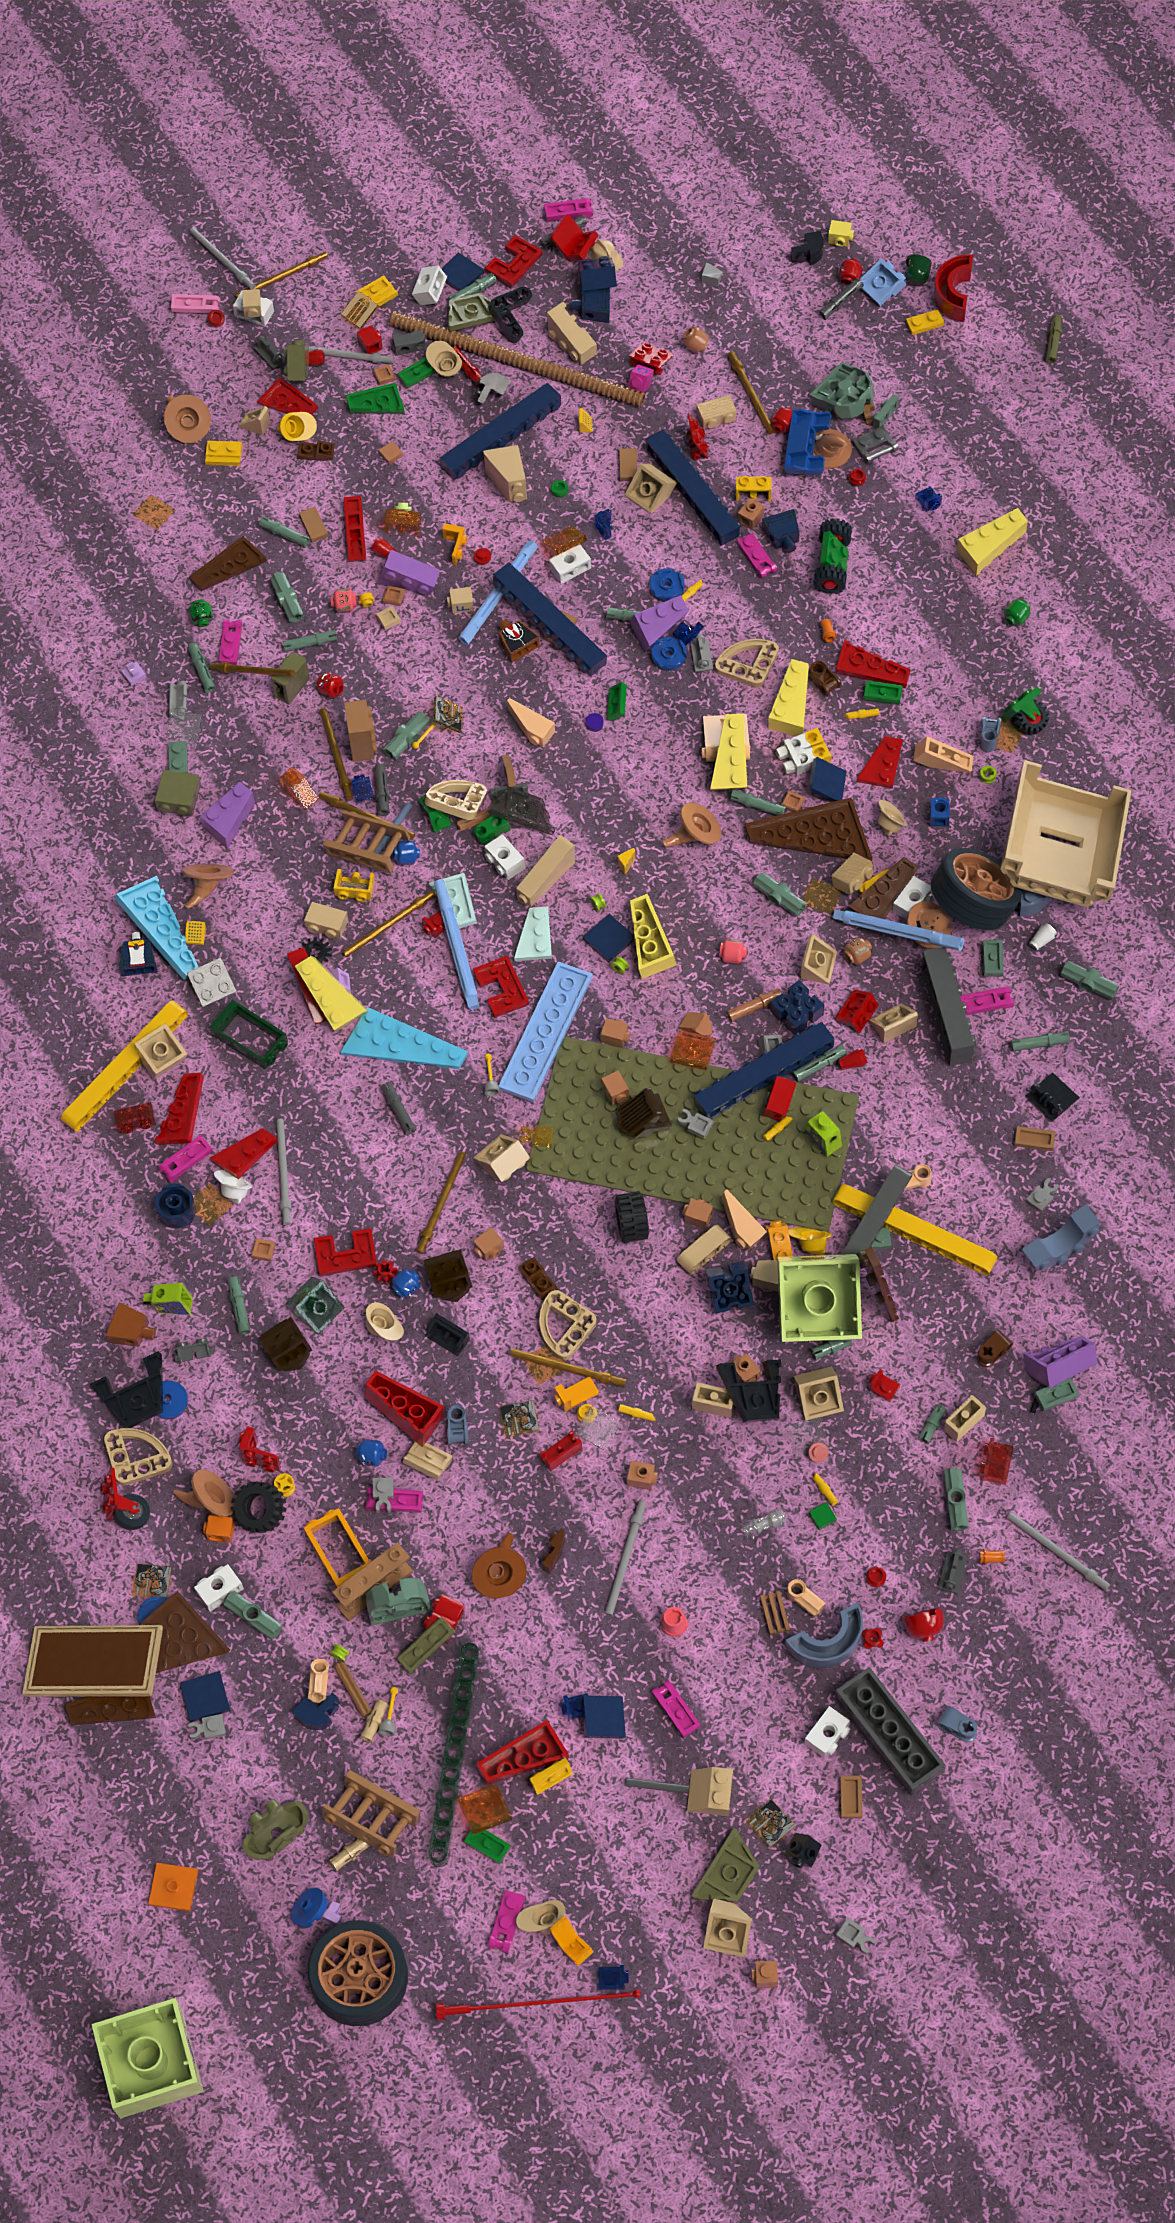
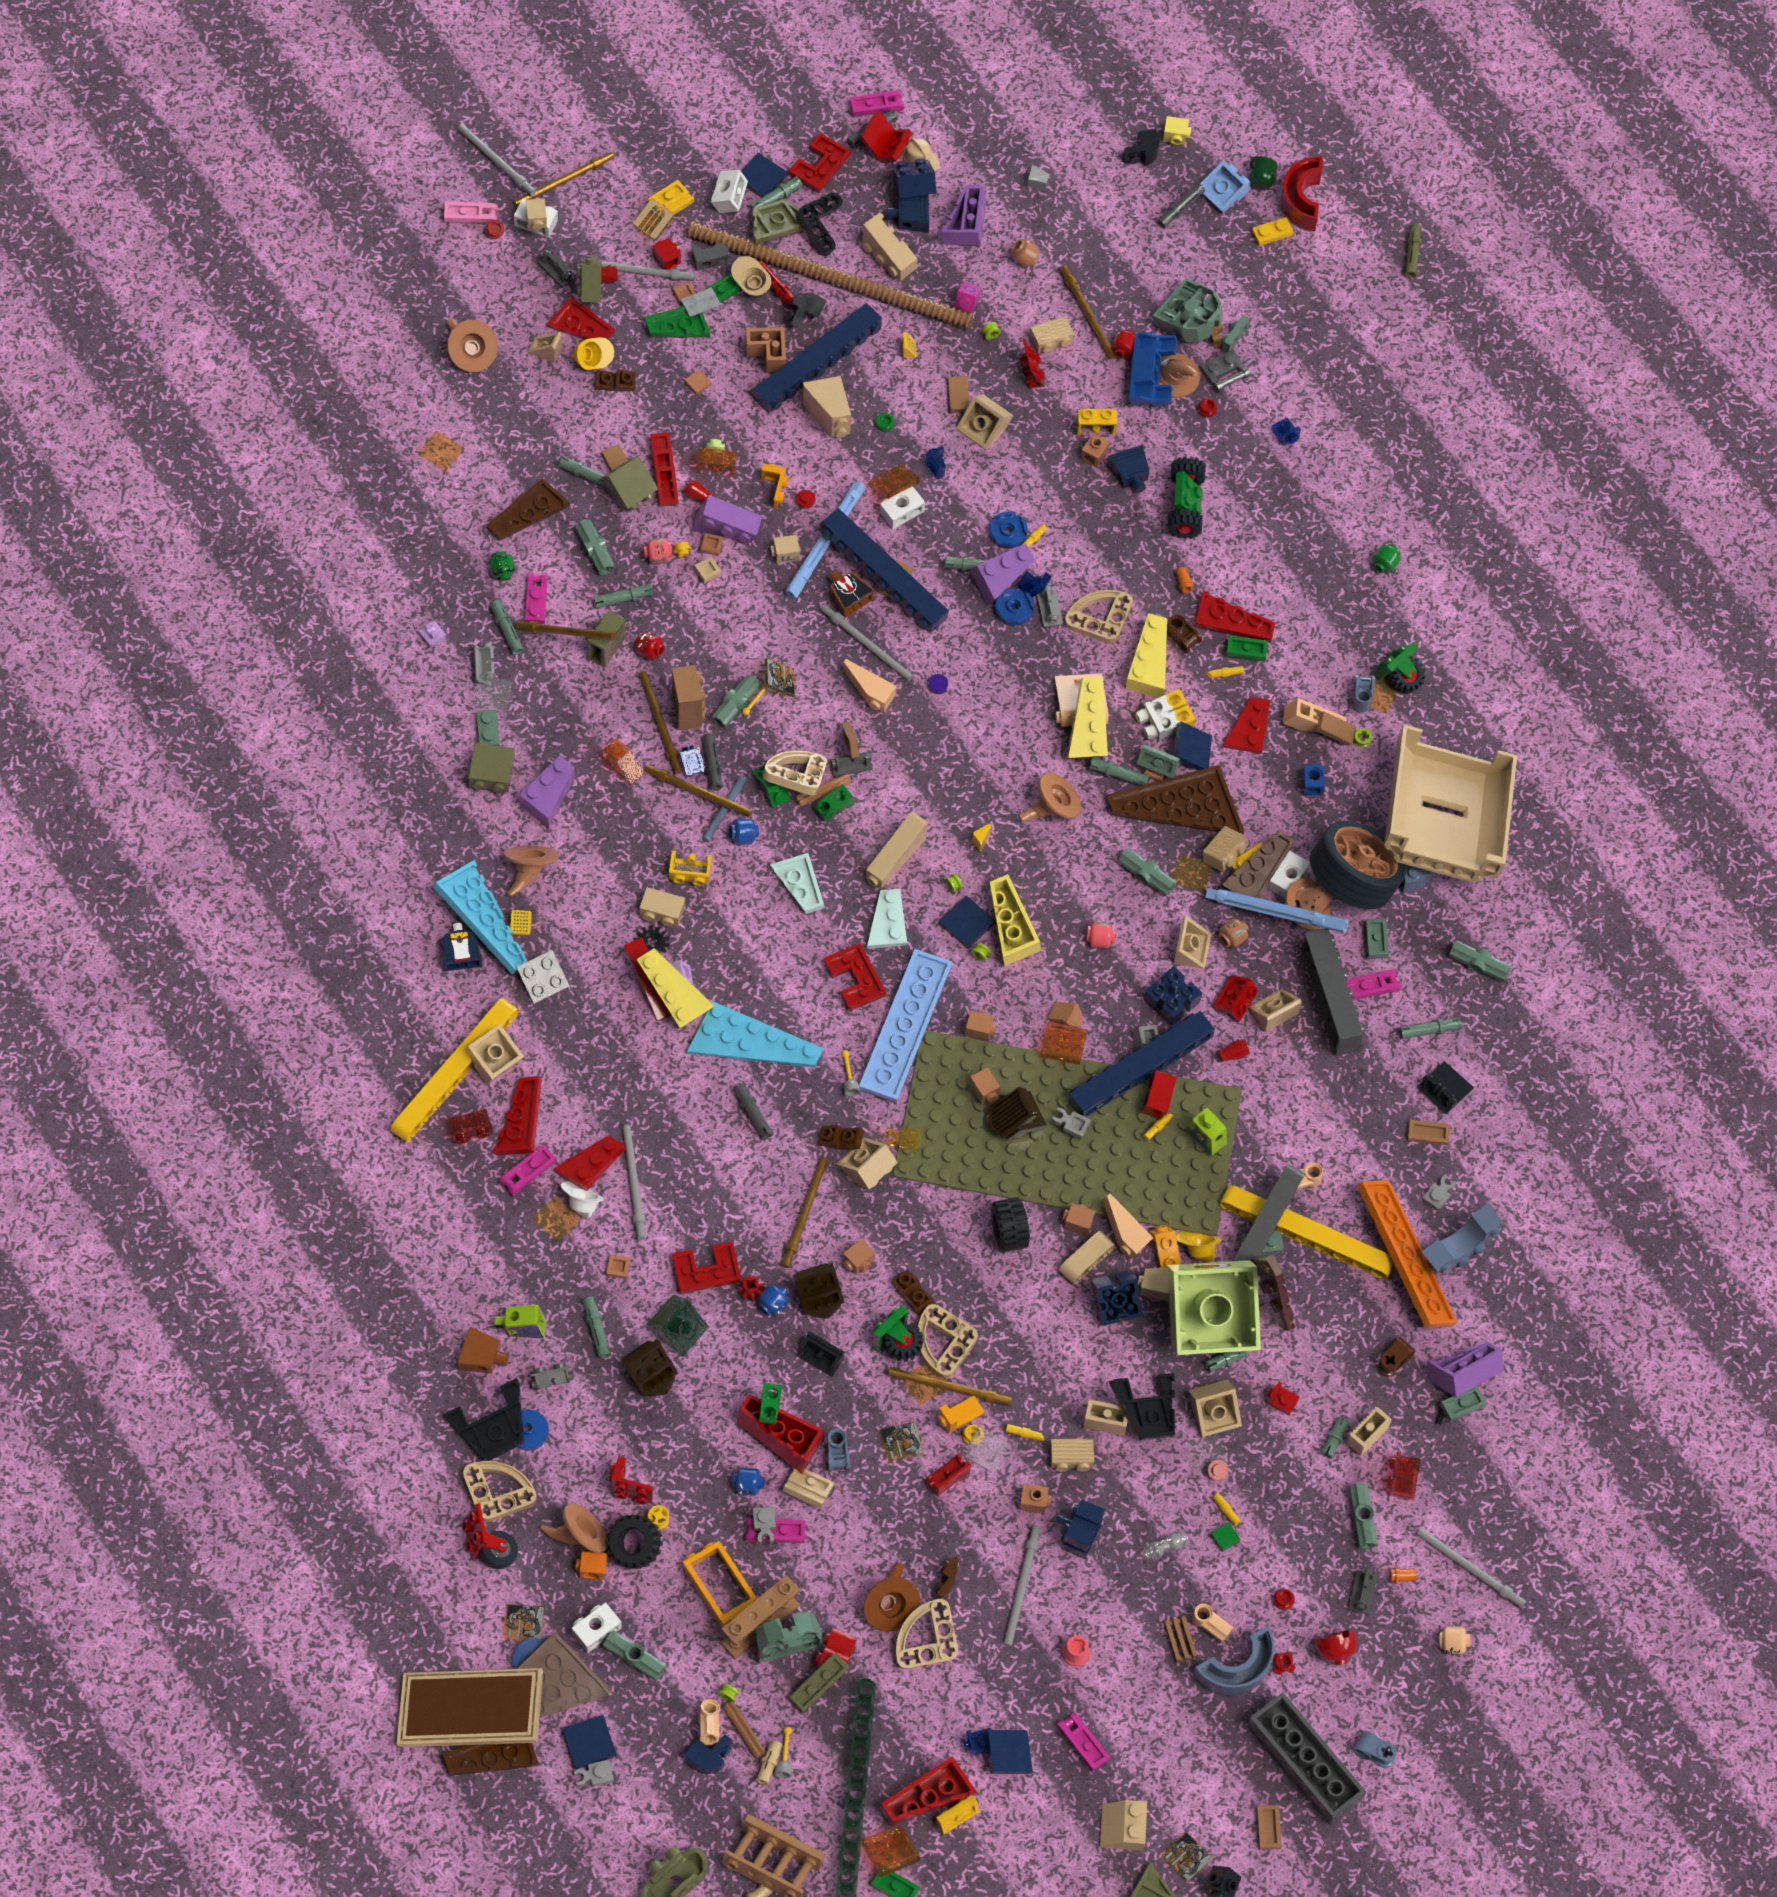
camera: 10 degrees left, 0 degrees up
(175, 1206) = (522, 1210): dark blue brick -> none
(223, 453) = (513, 383): yellow plate -> none
(228, 1015) = (563, 1012): dark green window -> none
(322, 541) = (630, 484): none -> olive brick
(366, 857) = (701, 837): medium nougat fence -> none
(382, 1322) = (752, 1343): tan piece -> none
(393, 1379) = (770, 1403): none -> green leg
(397, 381) = (700, 302): none -> flat silver sticker
(417, 903) = (759, 886): pearl gold bar -> none
(433, 925) = (780, 909): red bracket -> none
(456, 418) = (768, 343): none -> nougat brick
(456, 945) = (805, 932): light blue piece -> none
(478, 1134) = (840, 1138): none -> reddish brown slope
(502, 848) = (848, 825): white brick -> none
(505, 663) = (838, 619): none -> light grey bar
(520, 1319) = (897, 1336): none -> plate
(523, 810) = (868, 783): clear smoke wing -> none
(539, 1615) = (936, 1648): none -> tan beam
(617, 701) = (961, 661): green plate -> none
(644, 310) = (967, 219): none -> medium lavender wedge
(650, 356) = (977, 271): red hinge -> none
(661, 408) = (991, 330): none -> lime bush
(664, 1786) = (1068, 1821): dark grey bar -> none
(679, 1434) = (1072, 1454): none -> tan brick
(684, 1505) = (1081, 1528): none -> dark blue brick
(692, 487) = (1030, 420): dark blue brick -> none
(746, 1369) = (1139, 1383): nougat brick -> none
(753, 1005) = (1126, 993): nougat pin -> none
(756, 555) = (1103, 496): dark pink plate -> none
(794, 793) = (1158, 761): none -> sand green plate
(826, 1059) = (1218, 1043): sand green pin -> none
(831, 1721) = (1246, 1750): white brick -> none
(849, 271) = (1189, 174): red head -> none
(890, 818) = (1261, 787): tan piece -> none
(963, 765) = (1336, 728): none -> medium nougat tile
(991, 540) = (1354, 479): light yellow wedge -> none
(1008, 1252) = (1407, 1254): none -> orange plate
(1039, 1620) = (1454, 1640): none -> light nougat head
(1043, 936) = (1429, 913): white cone -> none

